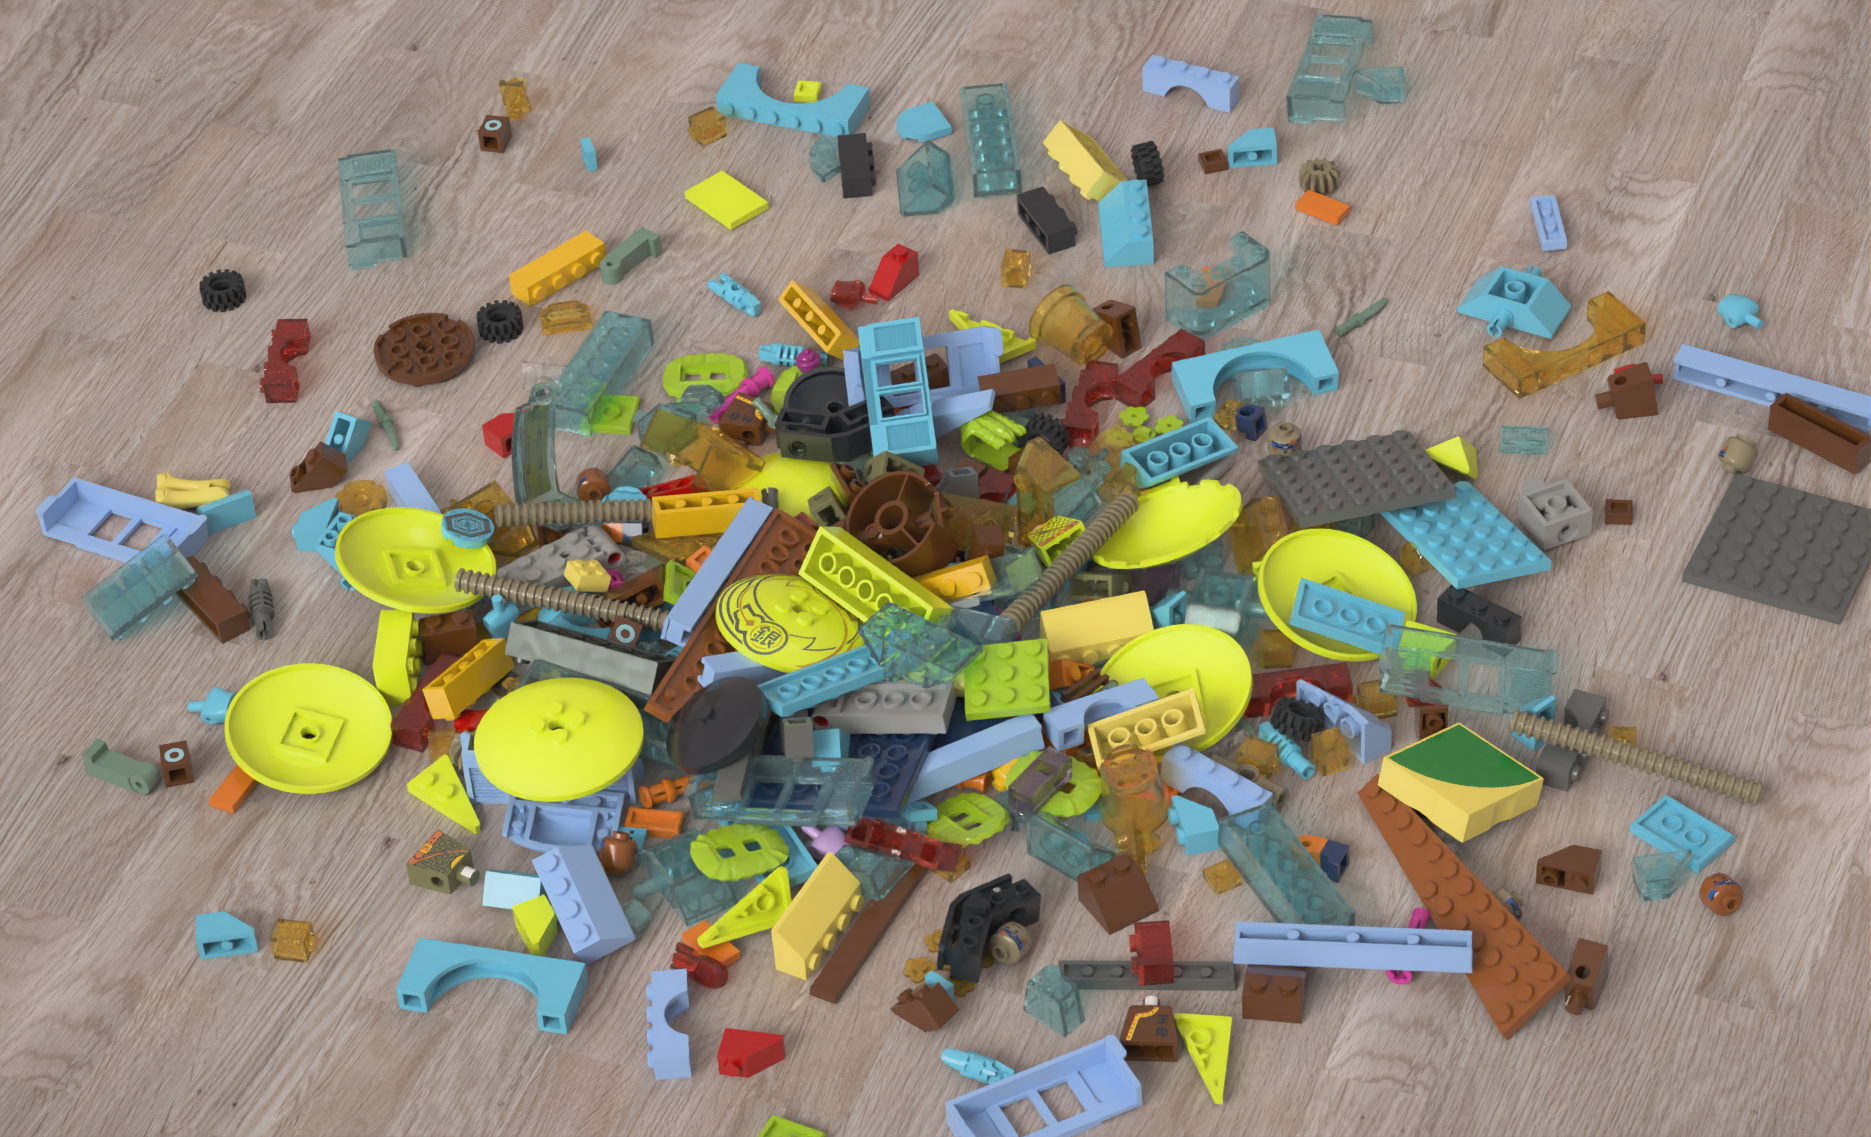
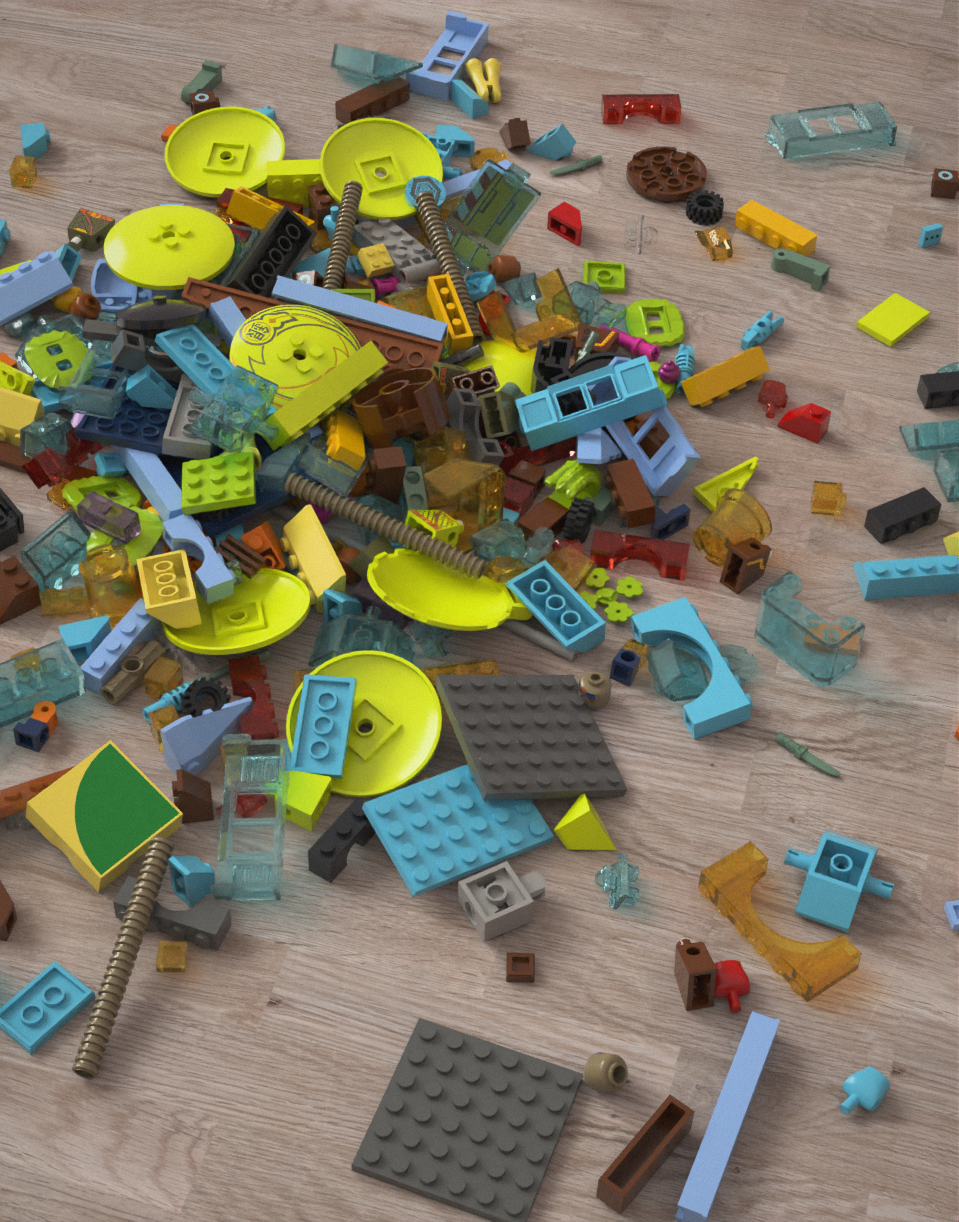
camera: 80 degrees right, 5 degrees up
(222, 290) = (720, 73): black tyre -> none
(601, 370) = (643, 259): clear light blue brick -> none
(1137, 384) = (721, 612): clear red arch -> none

